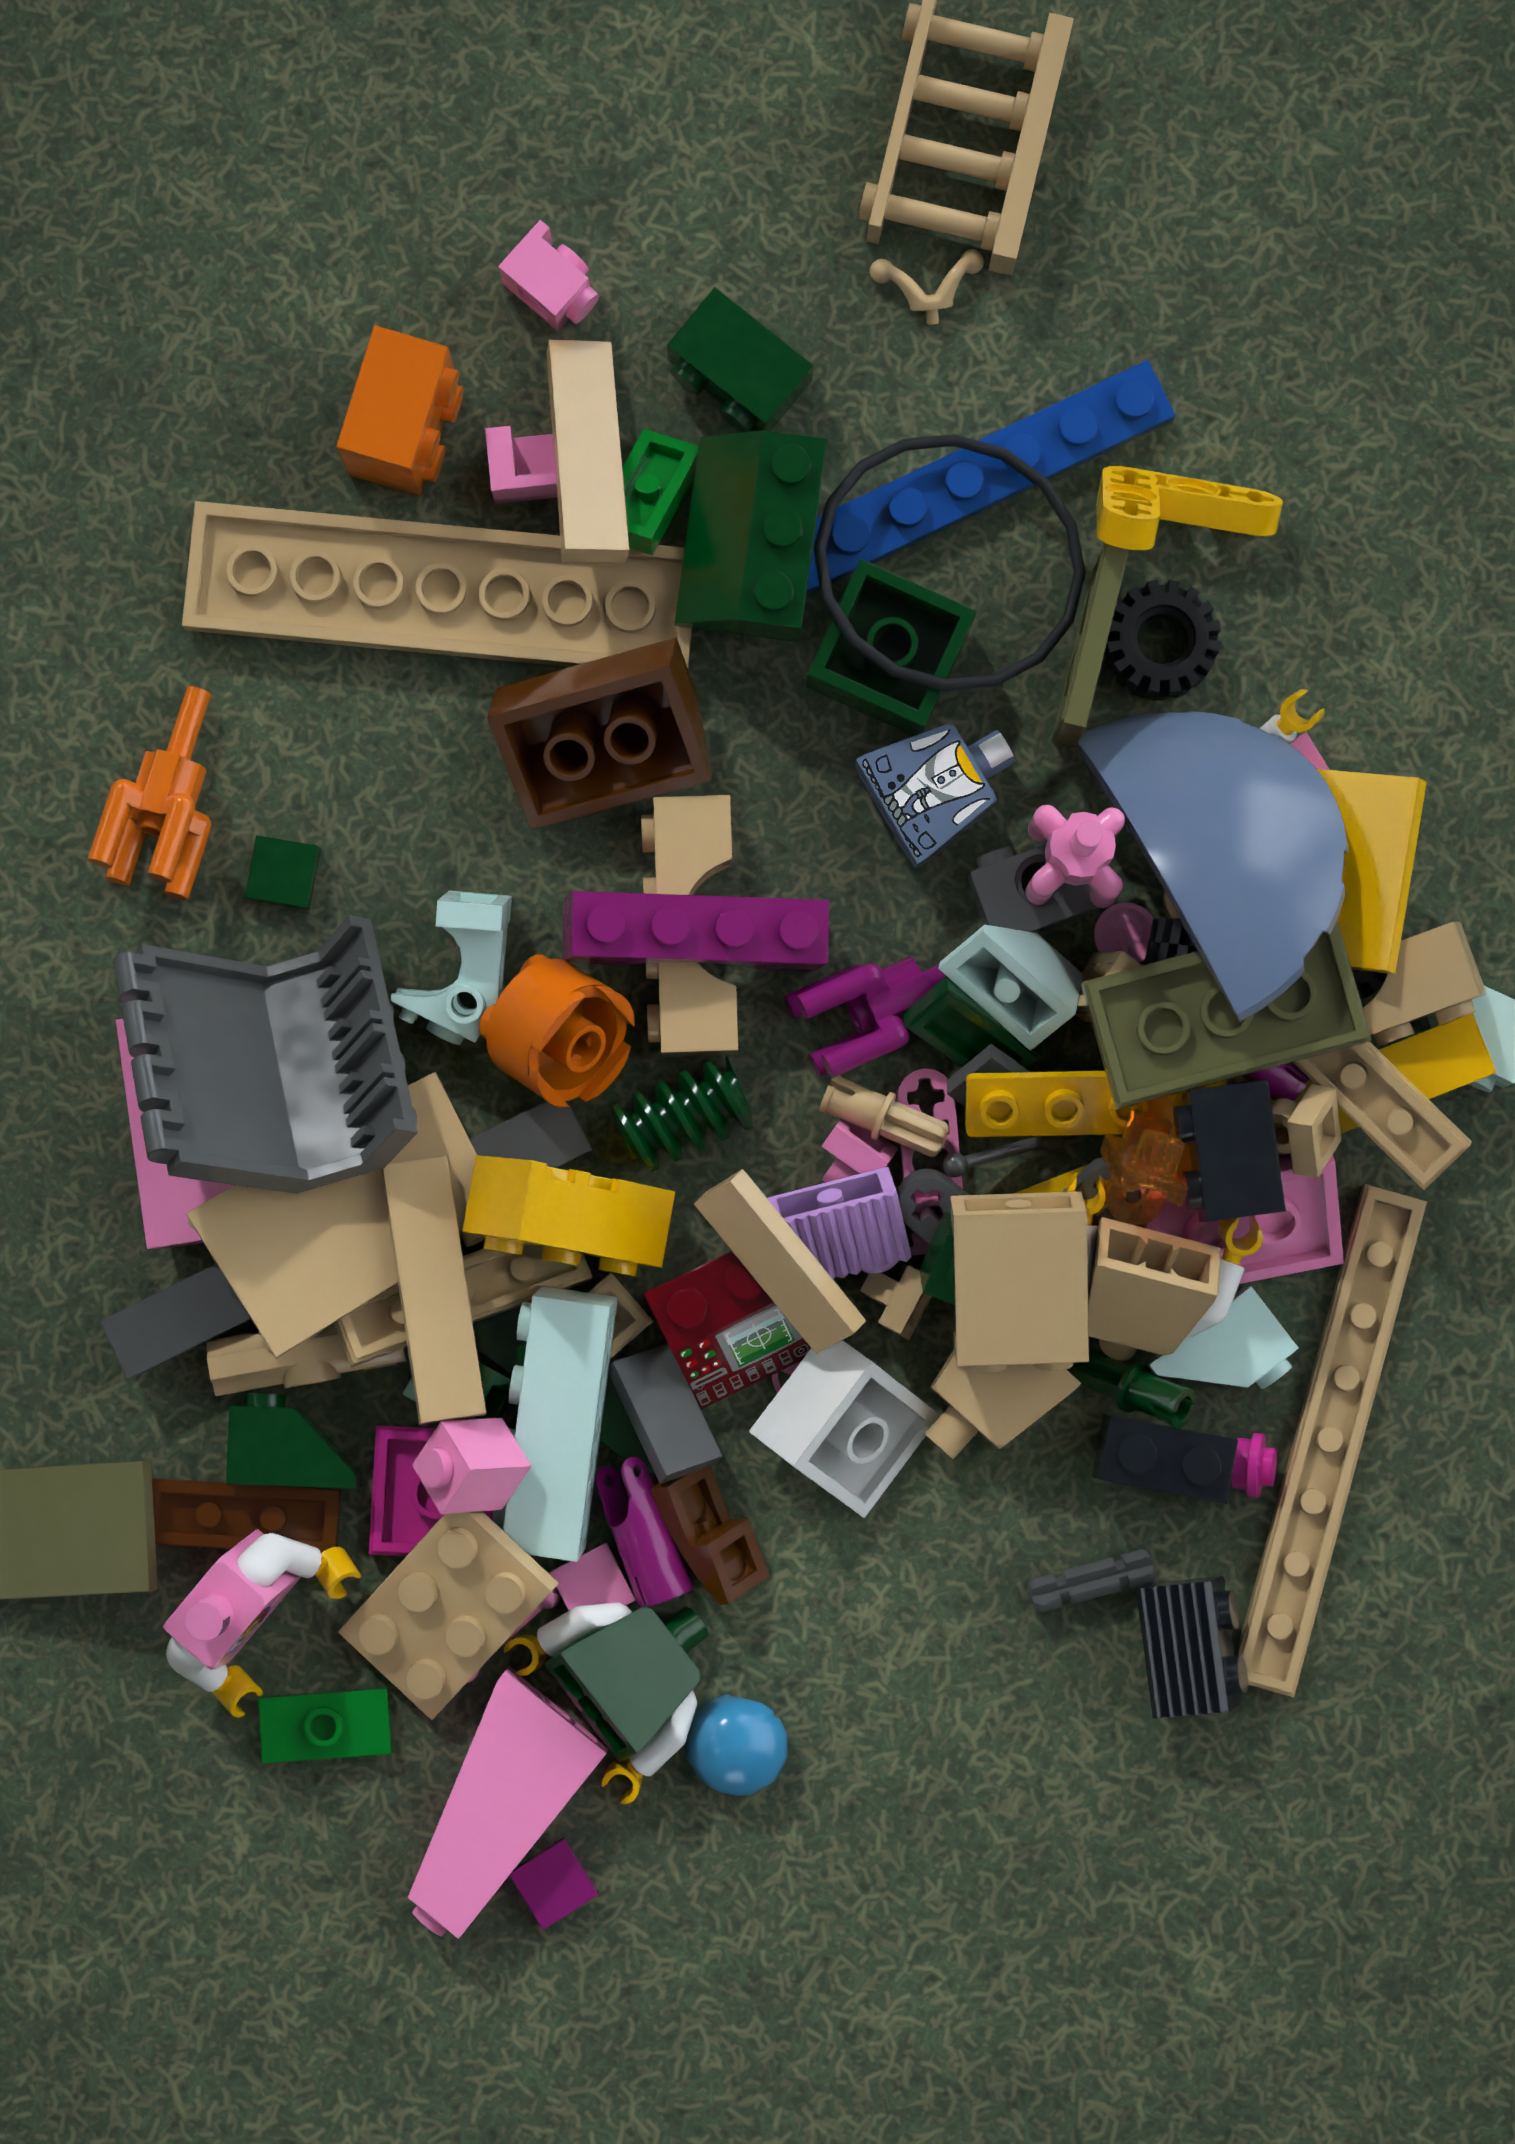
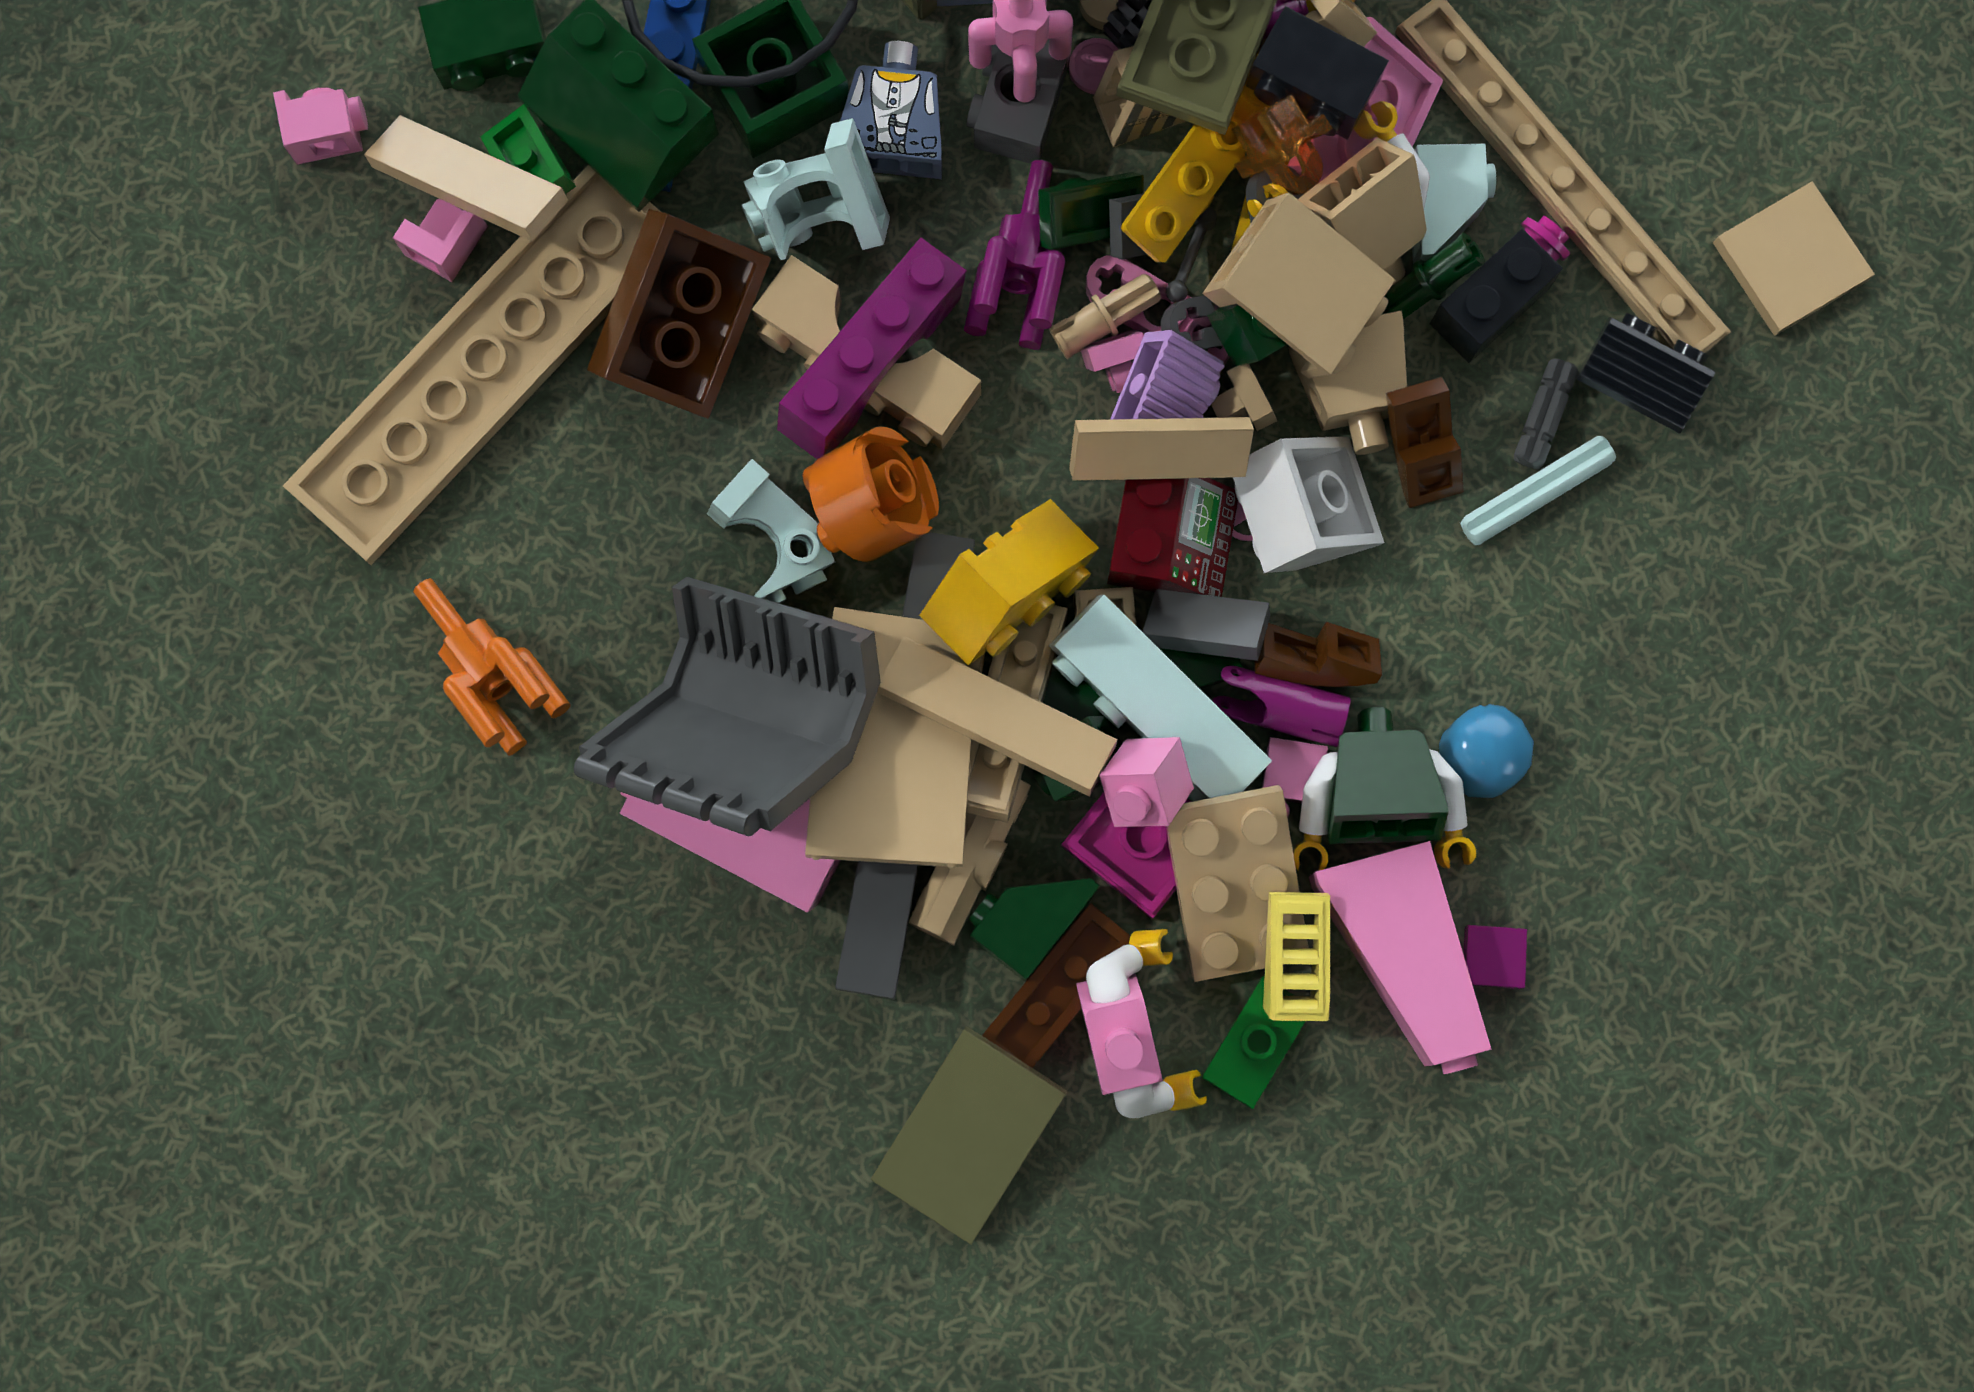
camera: 50 degrees left, 5 degrees down
(282, 872) = (602, 622): dark green tile -> none
(382, 1732) = (1297, 1008): none -> light yellow slope
(399, 412) = (334, 286): orange brick -> none
(682, 1114) = (994, 457): dark green piece -> none
(768, 762) = (855, 197): none -> light aqua tile
(977, 1491) = (1424, 442): none -> reddish brown slope
(1014, 1624) = (1538, 490): none -> light aqua axle
(1016, 981) = (1078, 150): light aqua slope -> none
(1409, 1706) = (1793, 258): none -> tan tile

